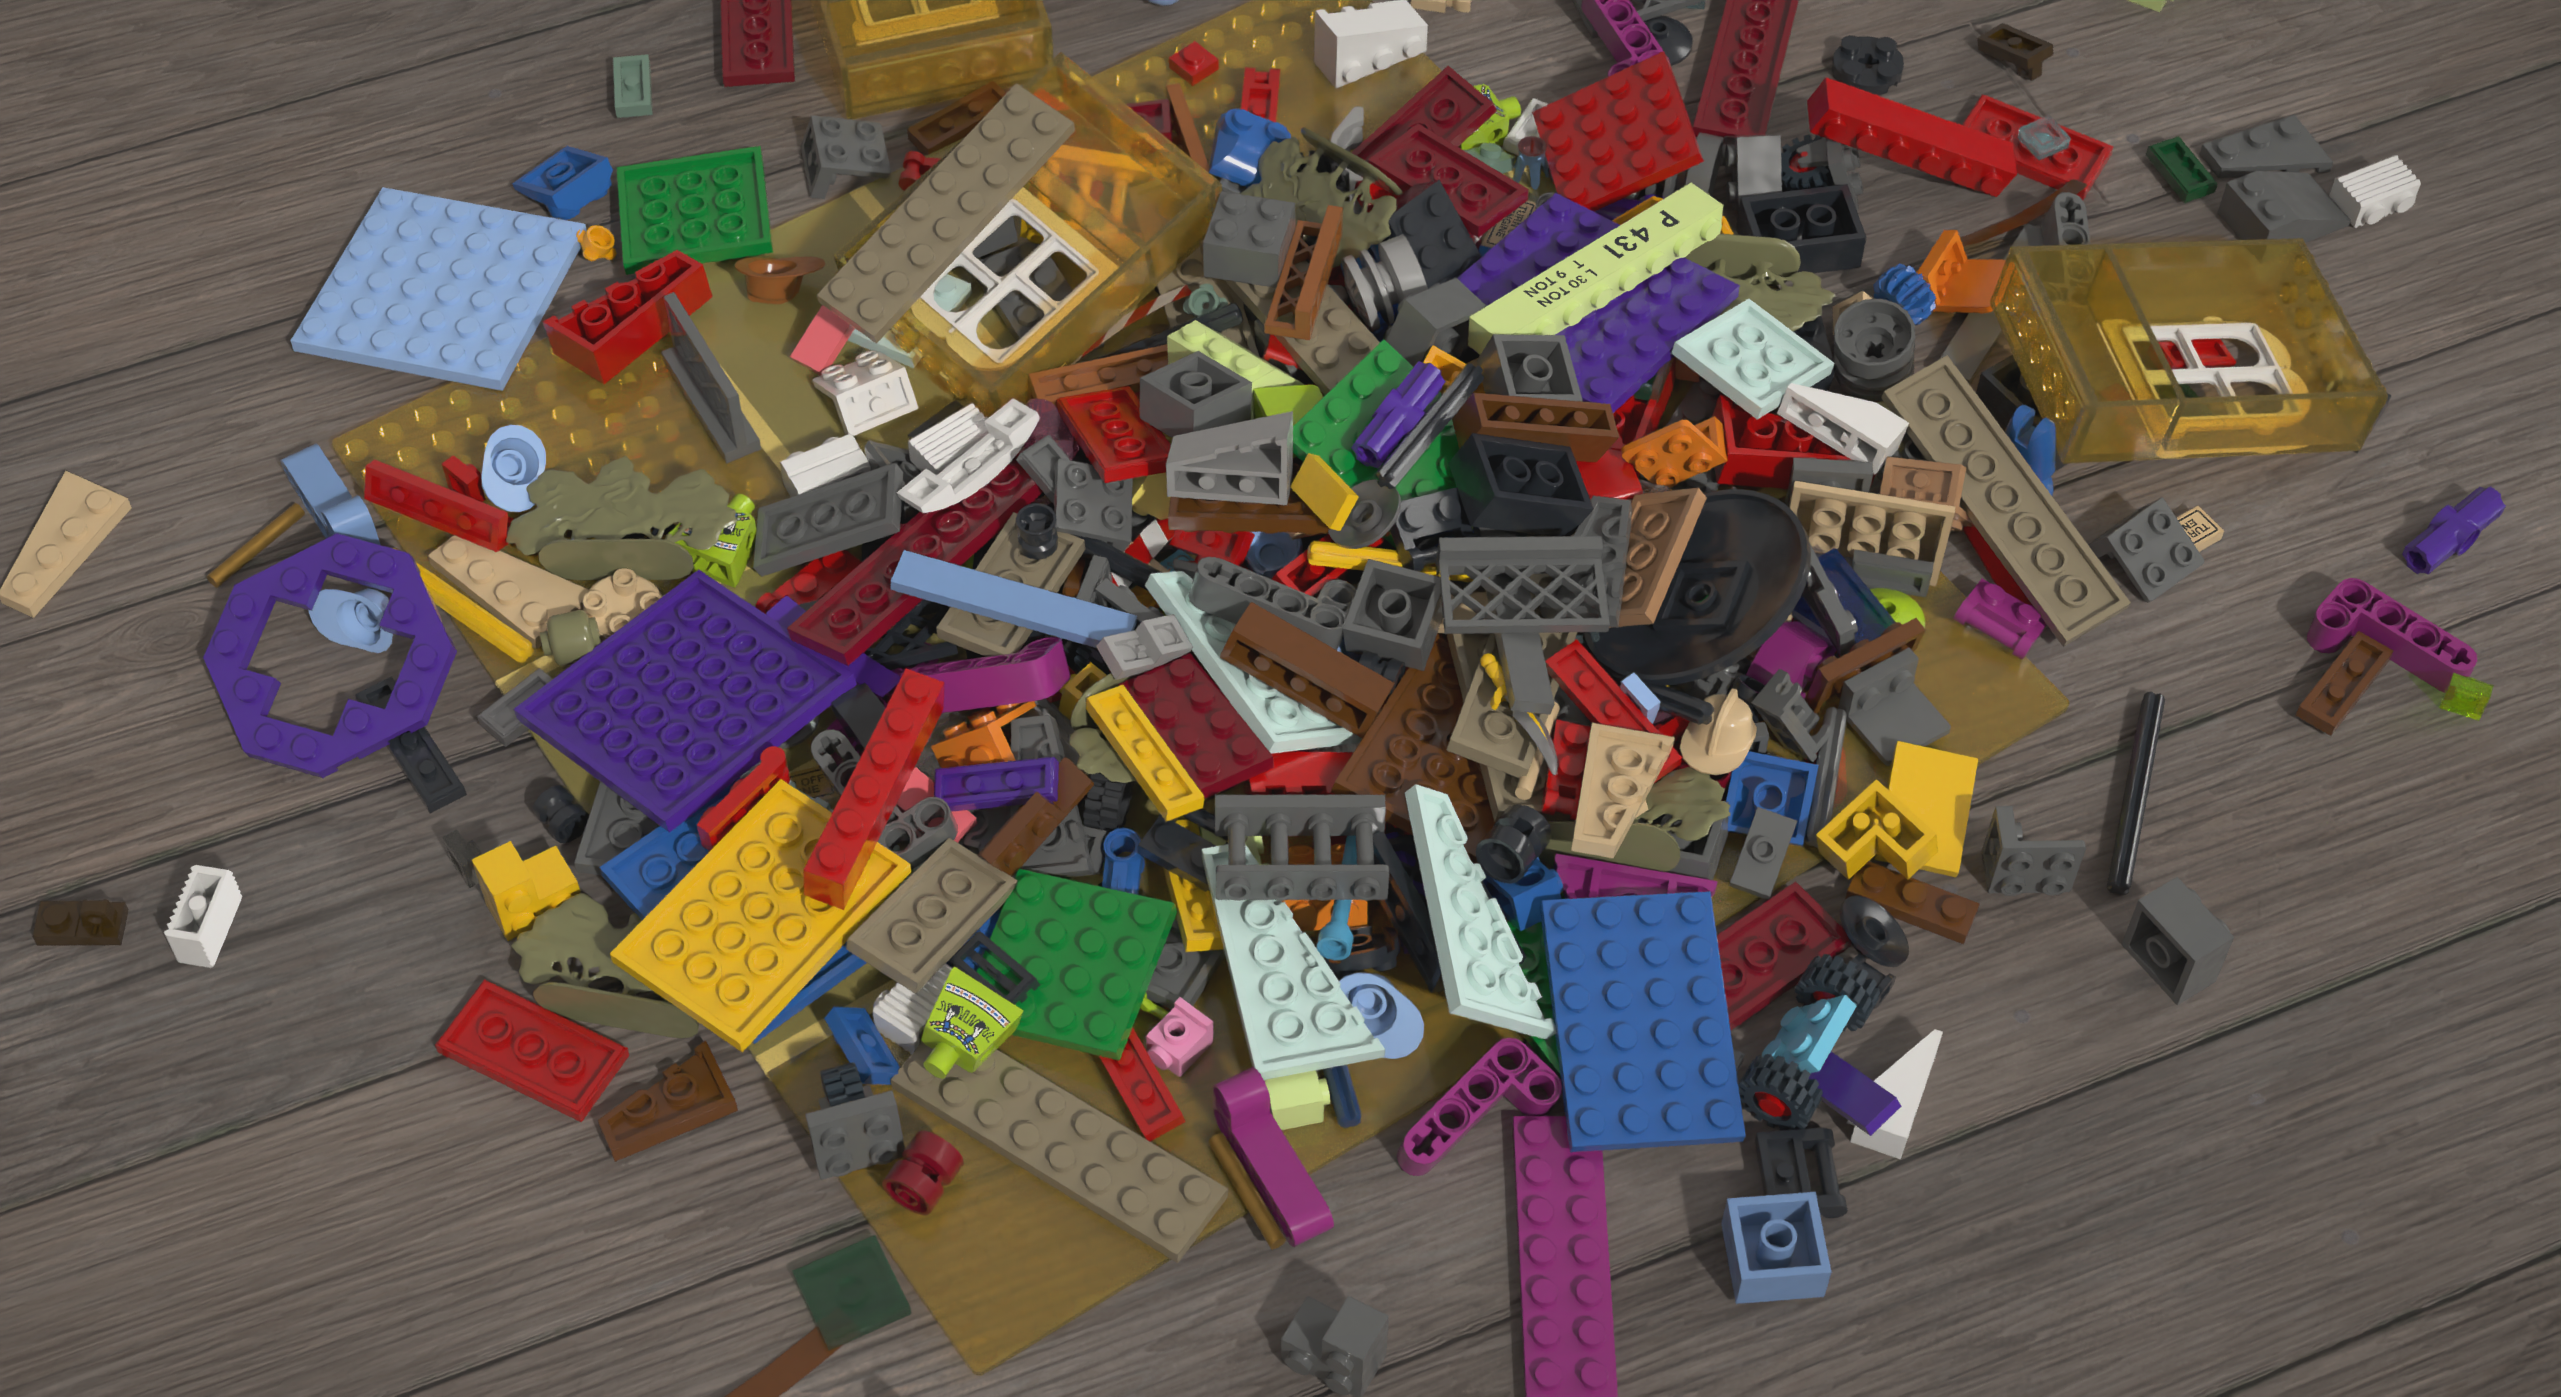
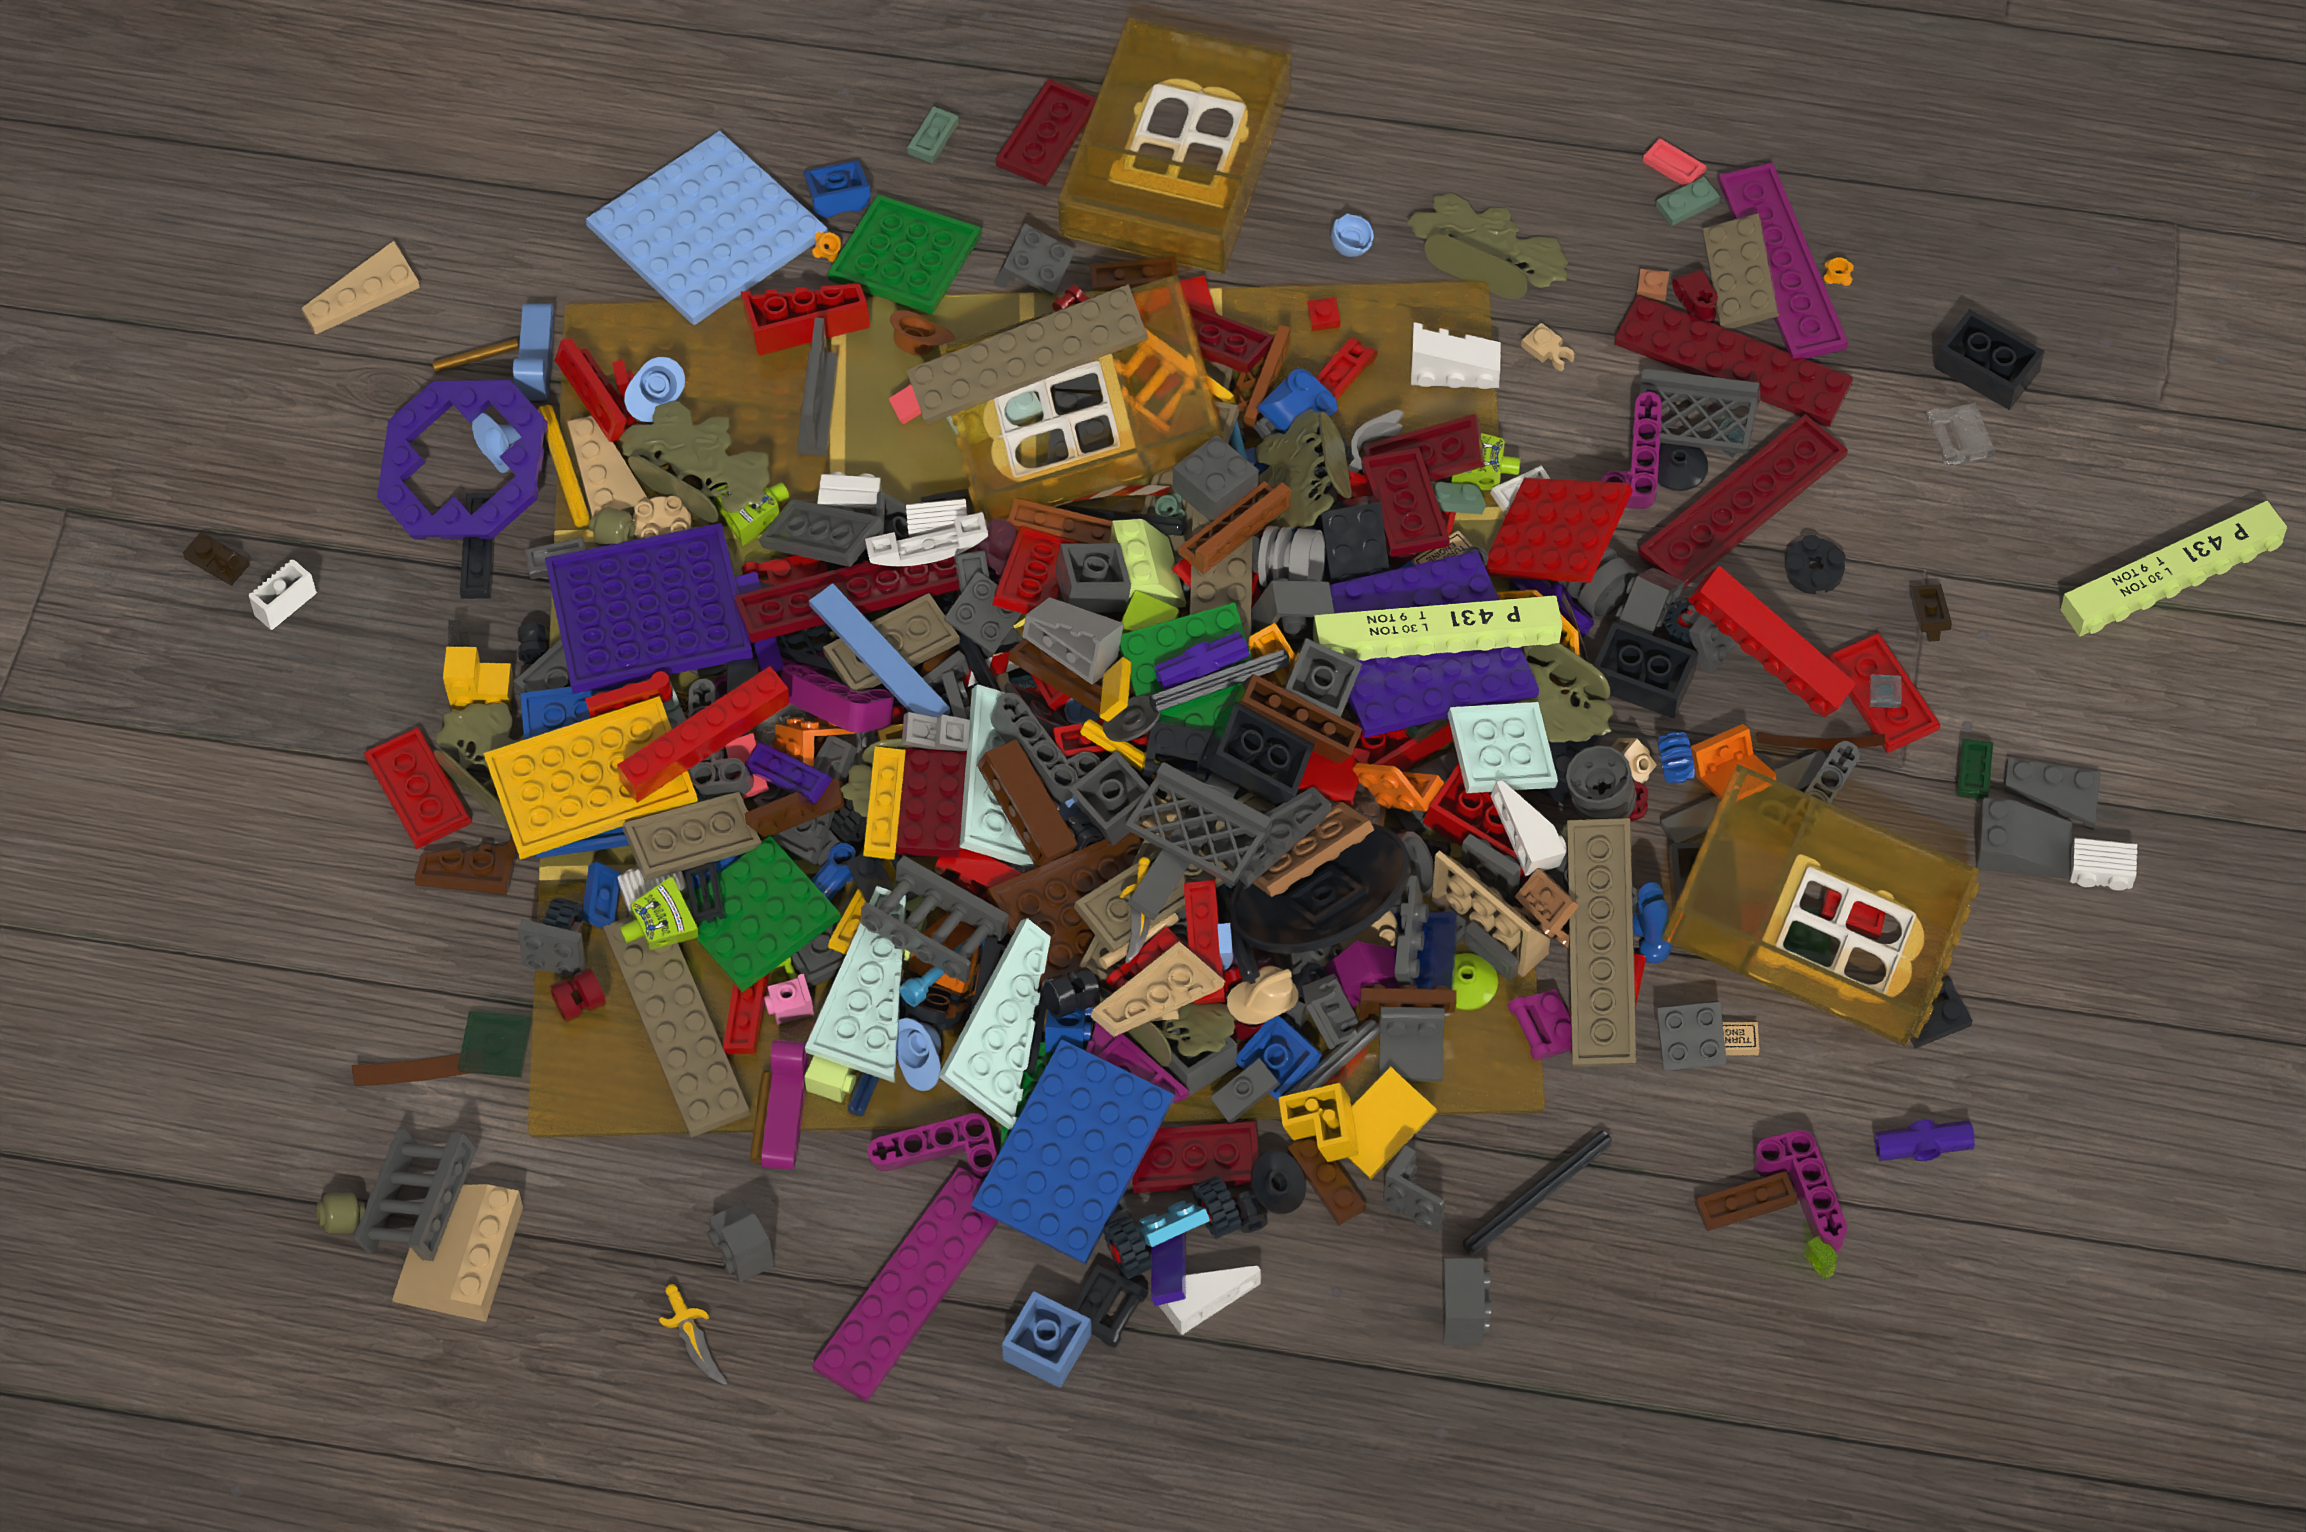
camera: 35 degrees right, 5 degrees up
(868, 391) = (918, 451): white bracket -> none
(1037, 531) = (927, 615): black wheel -> none
(1531, 153) = (1494, 510): flat silver piece -> none

